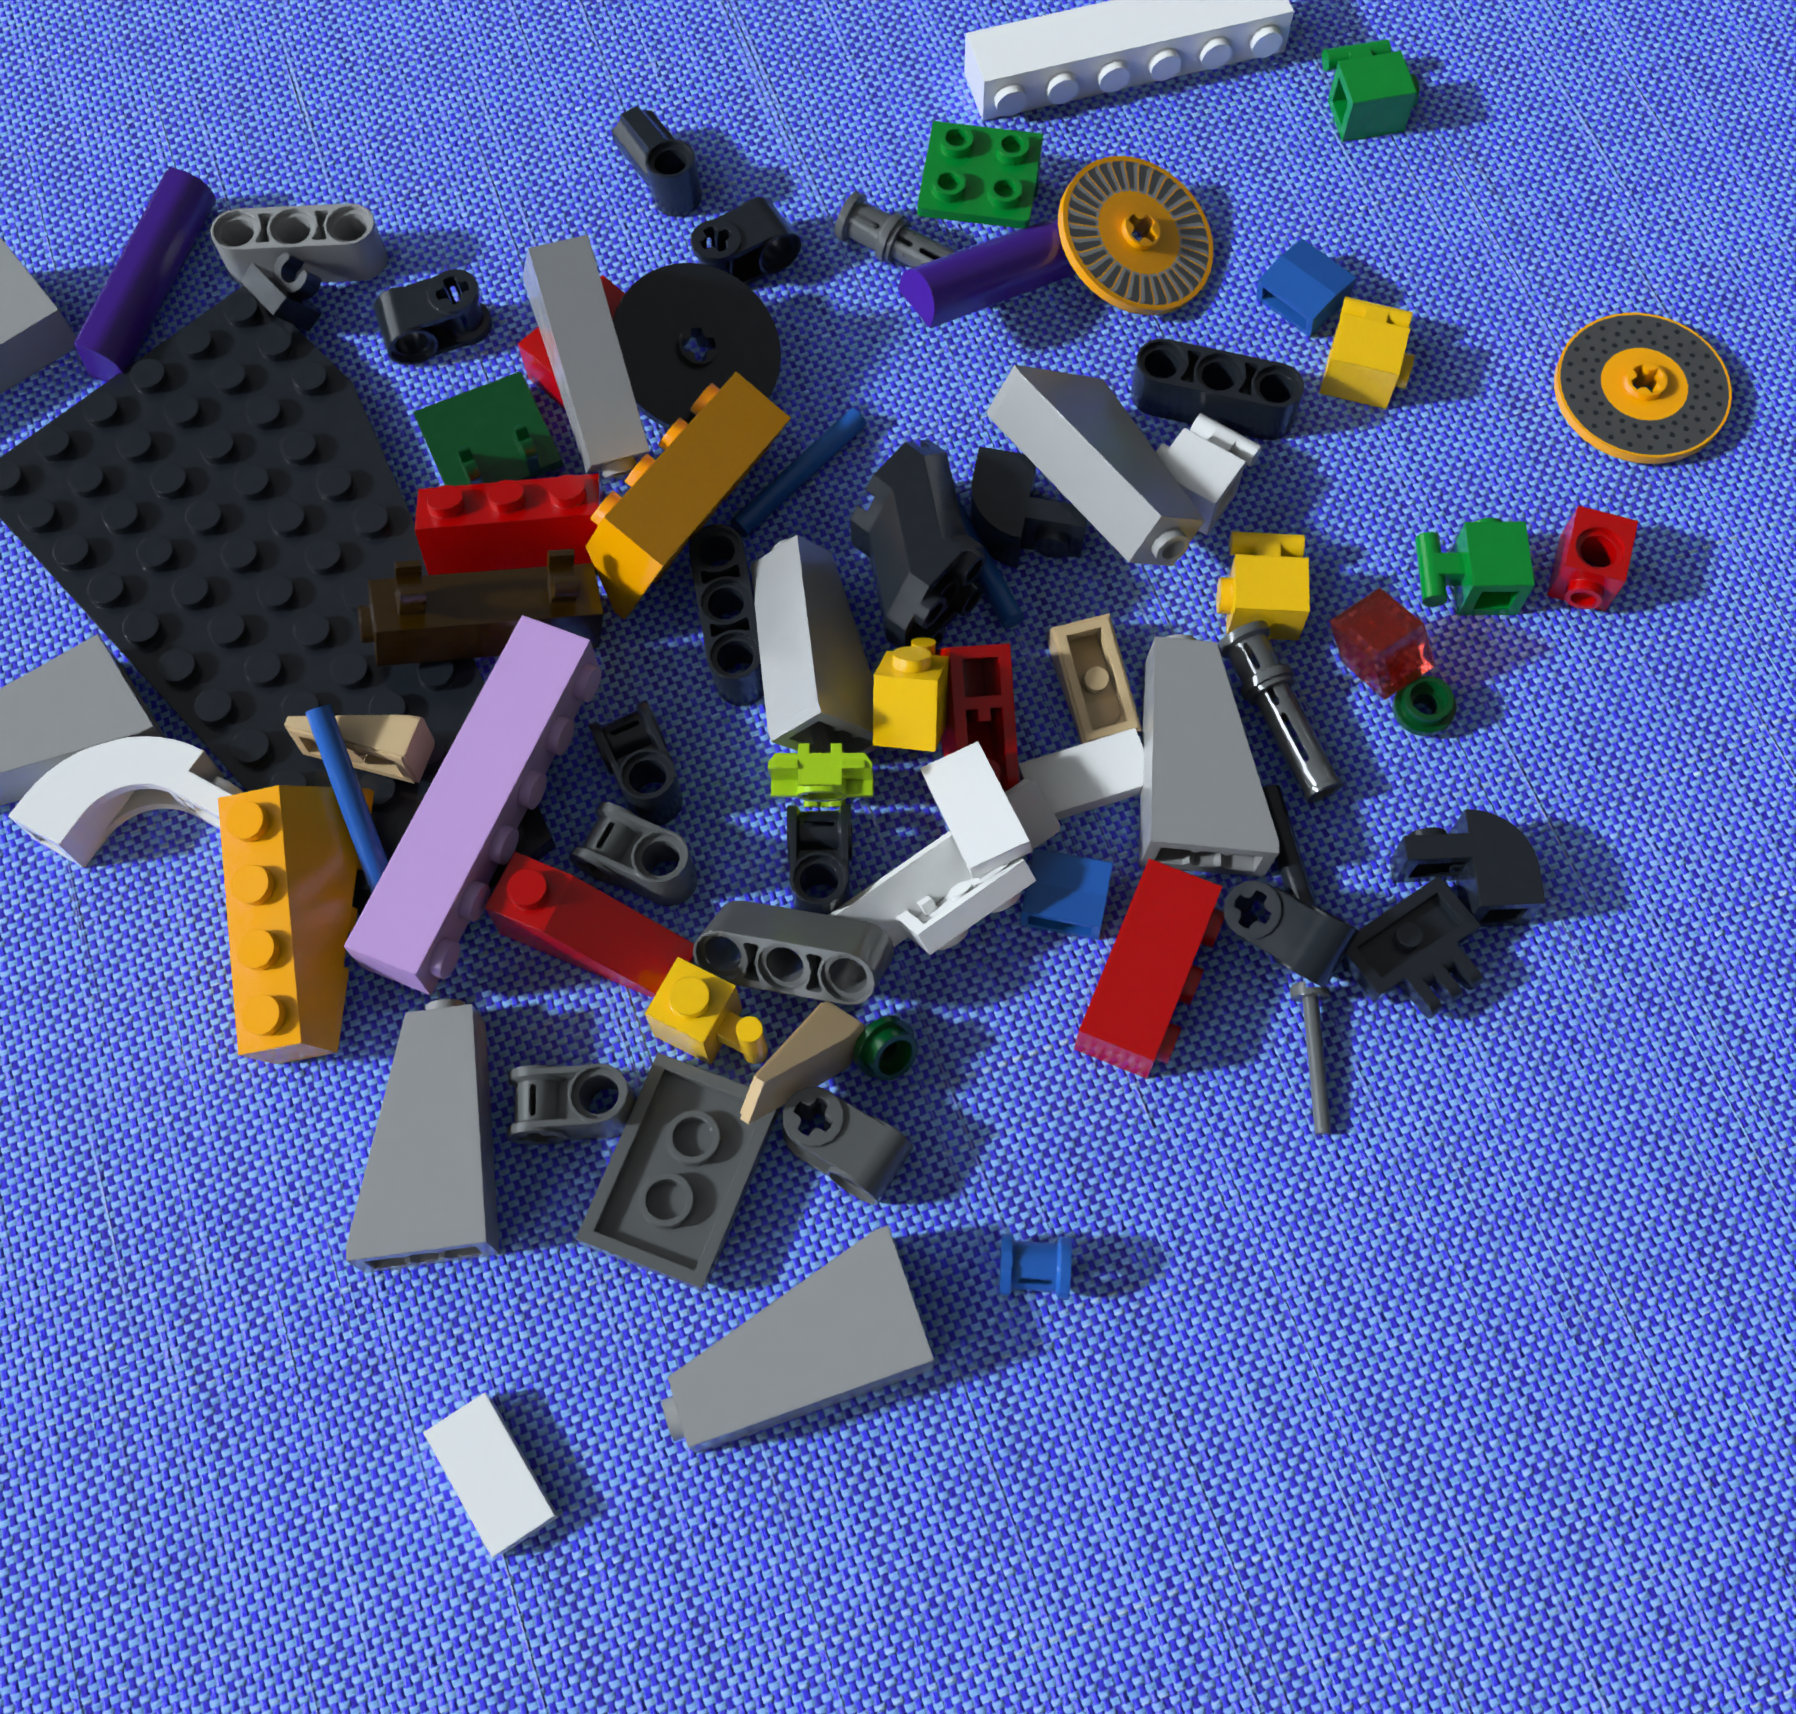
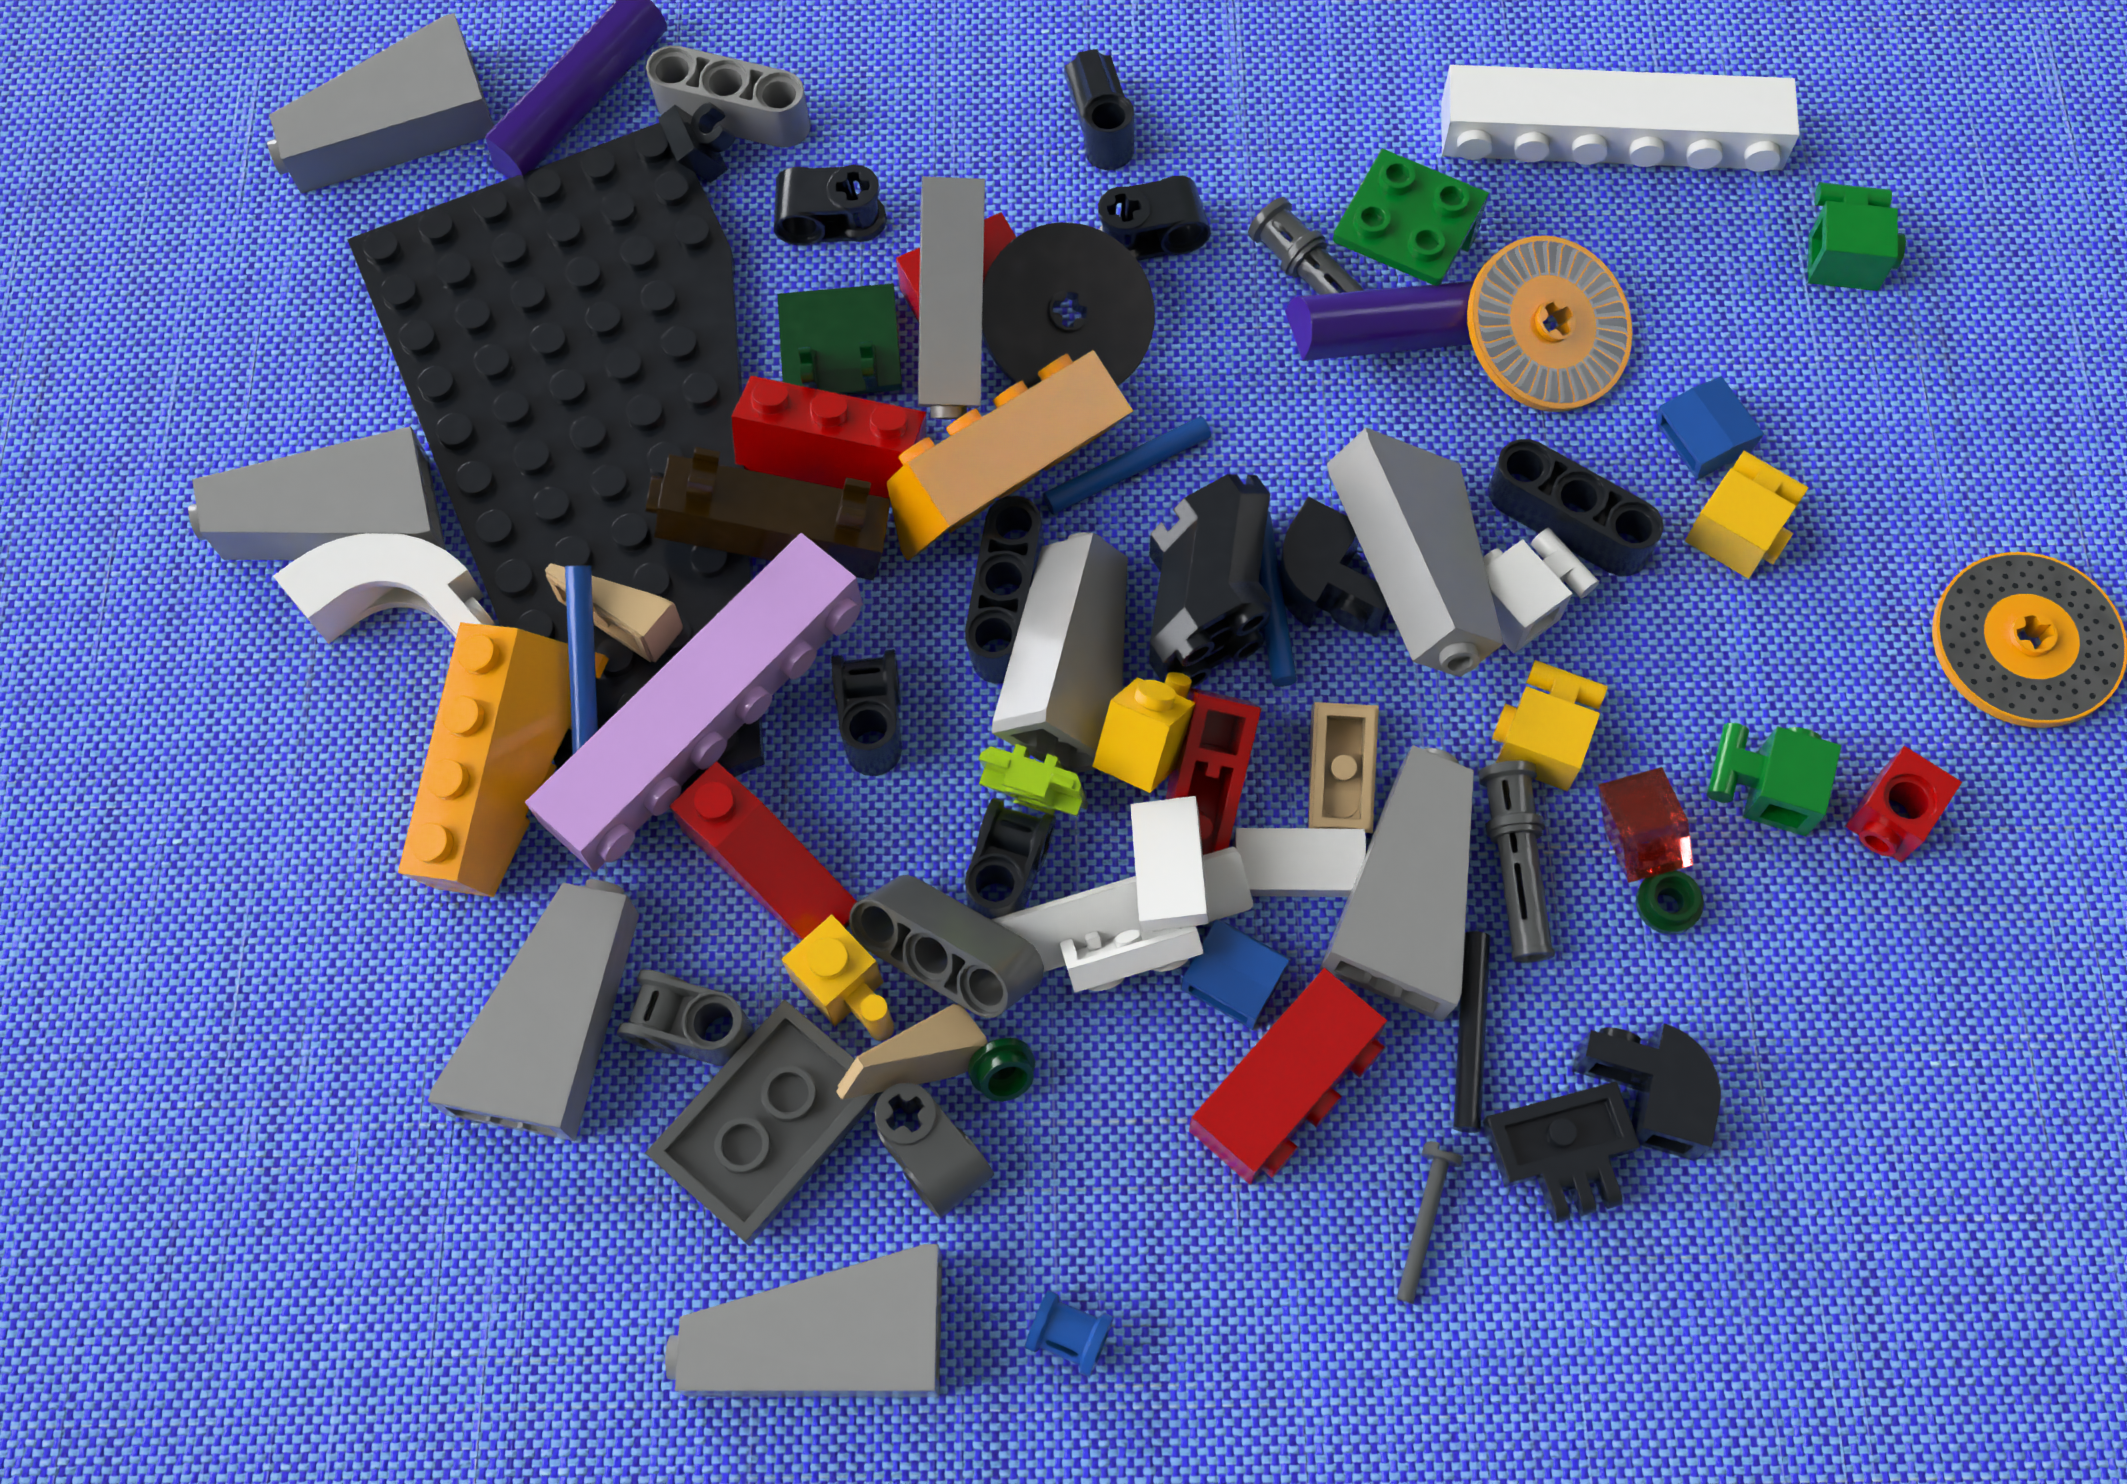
camera: 20 degrees right, 0 degrees up
(490, 1475) = (492, 1349): white tile -> none
(628, 848) = (826, 793): dark grey piece -> none
(1296, 933) = (1447, 1092): black piece -> none

